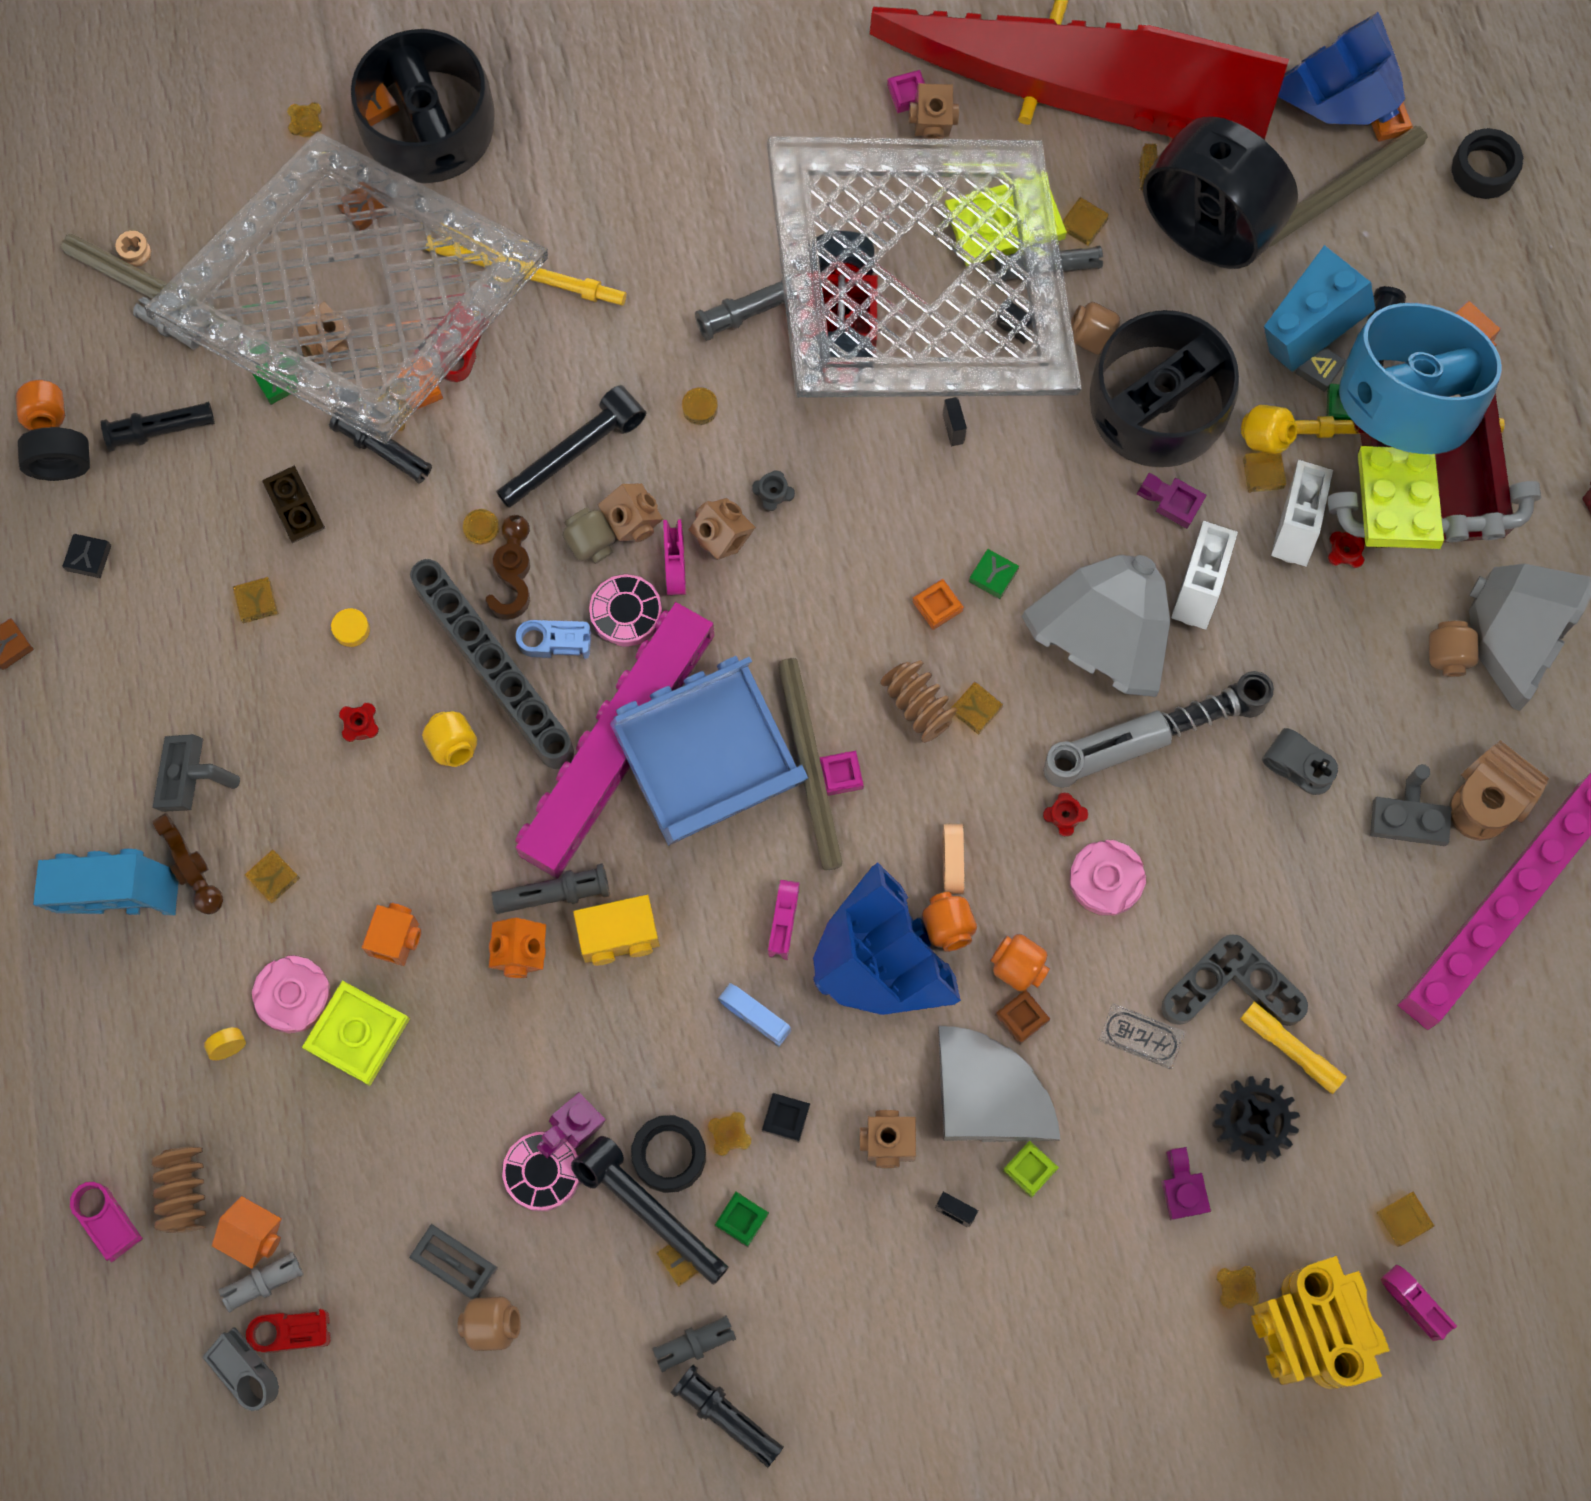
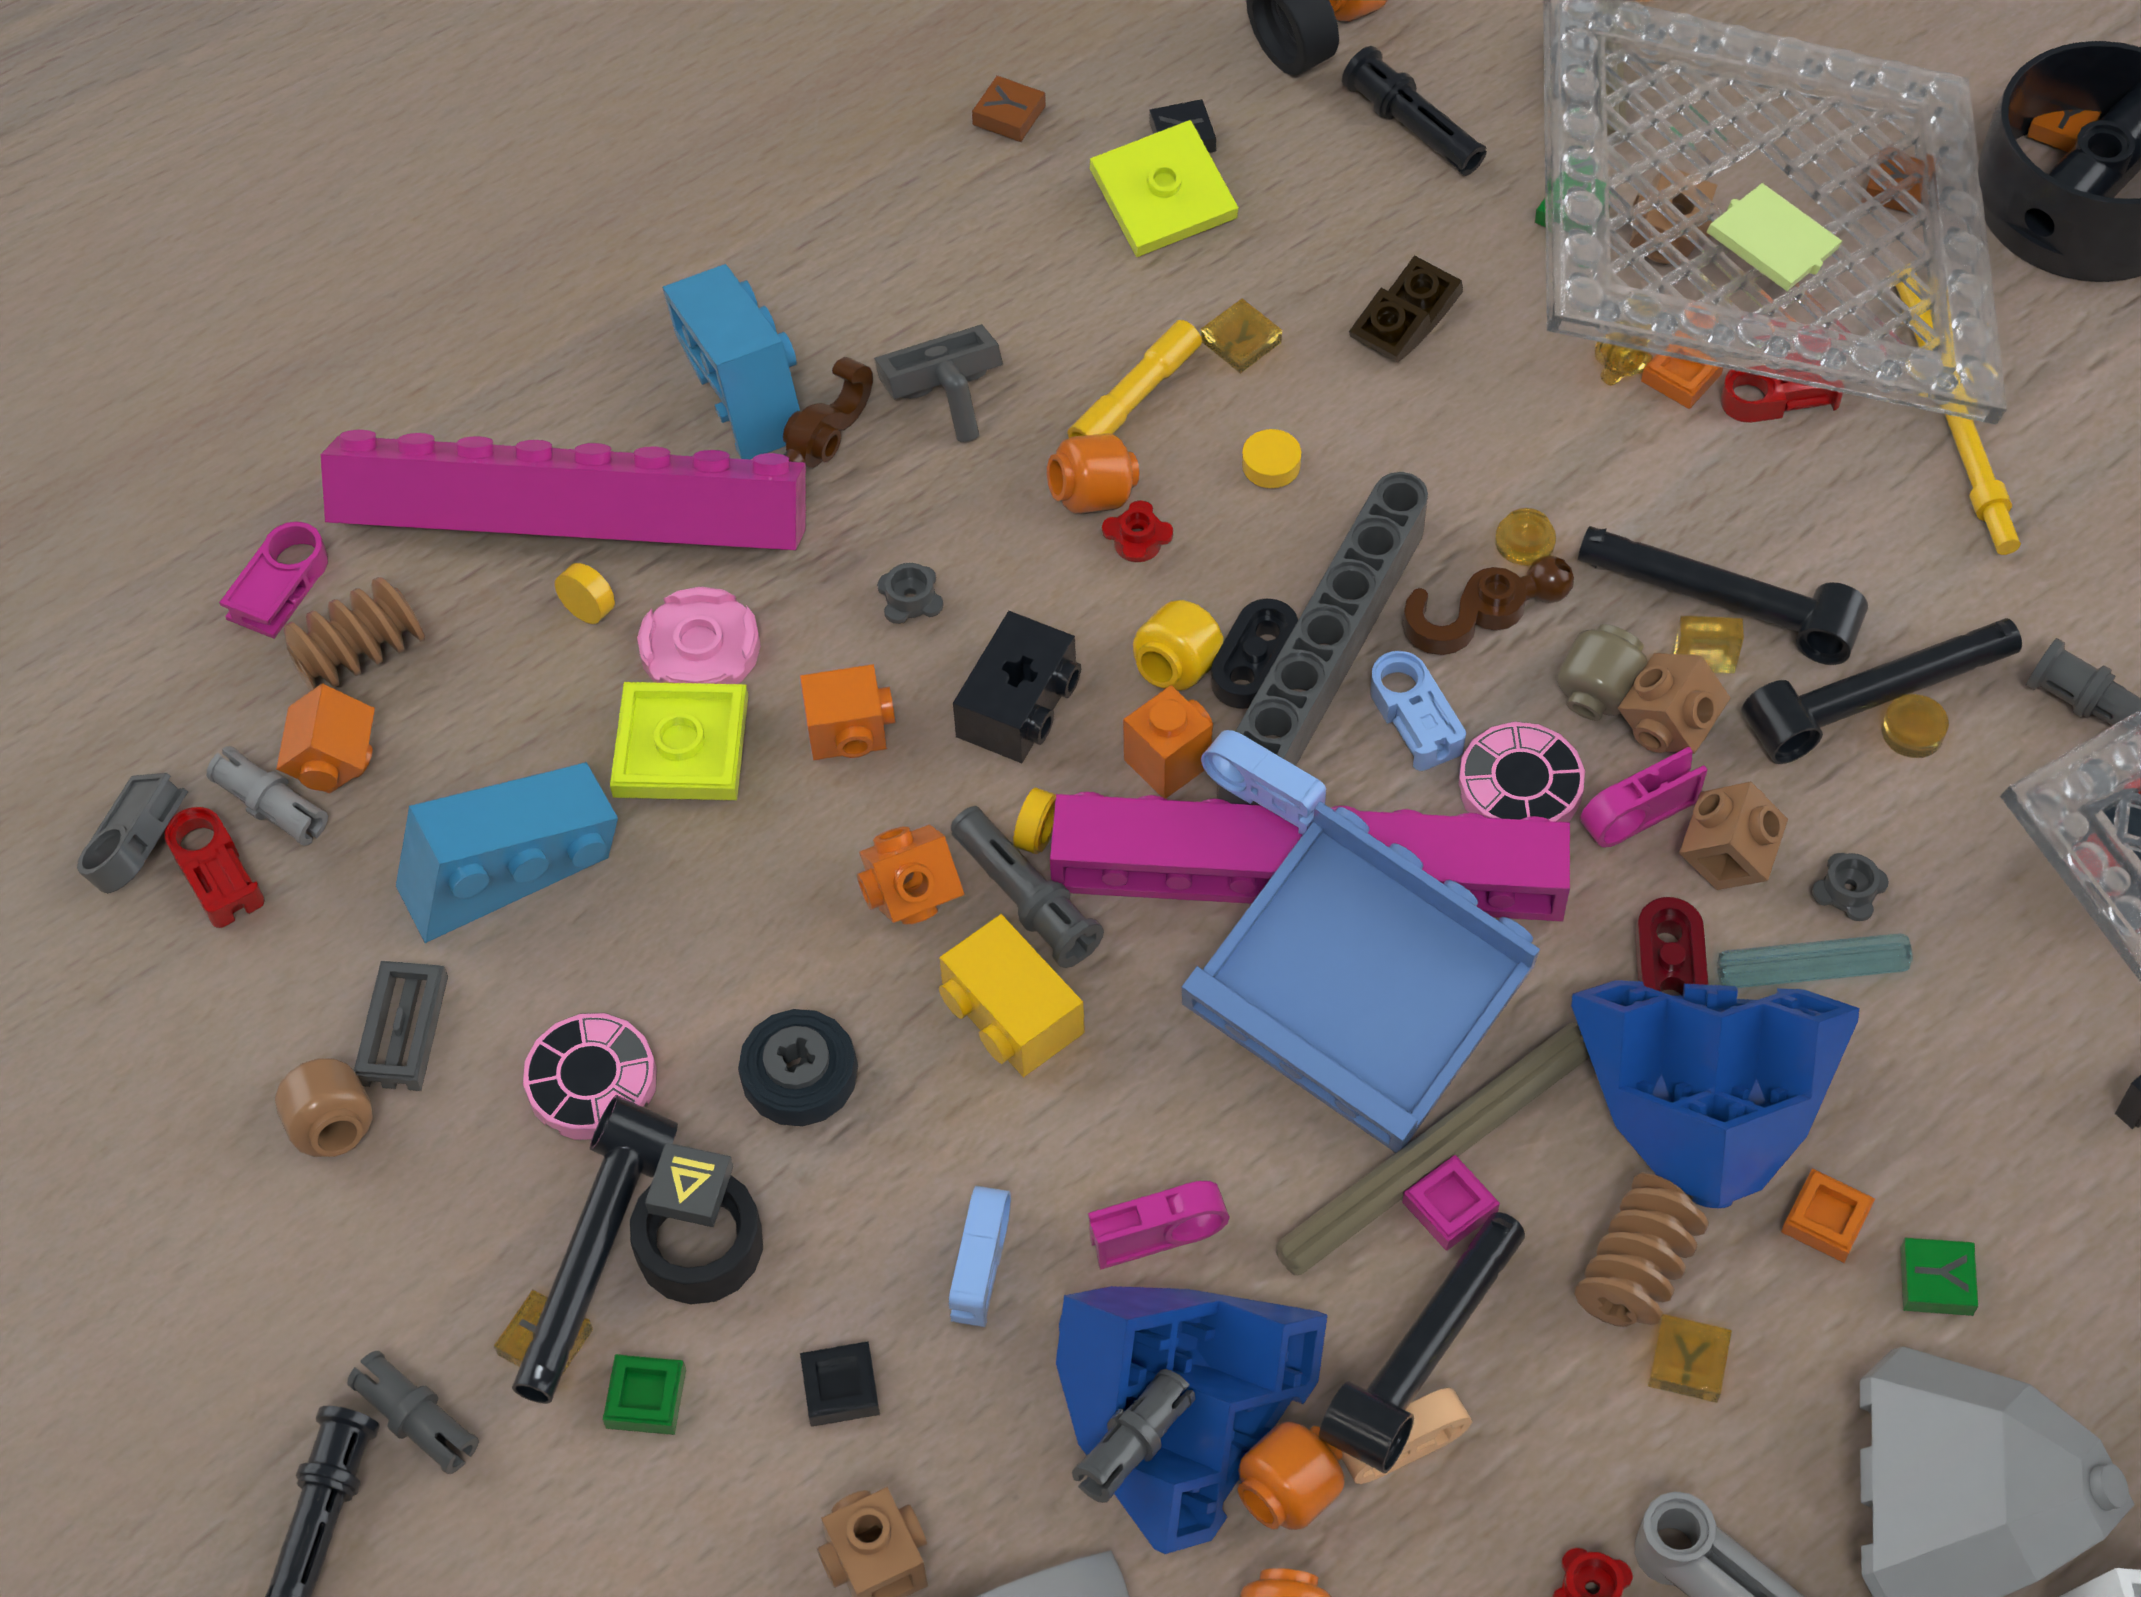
camera: 65 degrees right, 15 degrees down
(127, 588) = (1163, 188): none -> neon yellow plate
(148, 1027) = (564, 490): none -> dark pink brick
(266, 694) = (1157, 364): none -> yellow piece
(272, 876) = (856, 540): clear yellow tile -> none
(306, 127) = (1975, 59): clear yellow plate -> none
(309, 727) = (1092, 473): none -> orange head
(320, 856) = (909, 579): none -> dark grey plate
(377, 1159) = (500, 845): none -> dark azure wedge
(383, 294) = (1774, 236): none -> yellowish green piece
(391, 452) = (1561, 384): black pin -> none
(435, 855) = (1016, 687): none -> black brick
(477, 702) = (1248, 655): none -> black plate
(508, 773) = (1167, 740): none -> orange brick
(518, 865) = (1035, 821): none -> yellow tile
(571, 1123) = (682, 1078): magenta plate -> none
(573, 737) = (1263, 777): none -> light blue piece
(601, 475) = (1713, 638): none -> clear yellow tile
(607, 1068) = (806, 1090): none -> black wheel
(648, 1143) = (689, 1184): none -> dark grey tile
(666, 463) = (1792, 722): none -> black piece
(735, 1123) = (768, 1291): clear yellow plate -> none
(772, 596) = (1672, 963): none -> dark red plate
(804, 531) = (1814, 960): none -> clear light blue axle
(846, 614) = (1710, 1081): none -> blue brick
(902, 985) = (1133, 1435): none -> dark grey pin
(949, 869) = (1375, 1420): none -> black piece

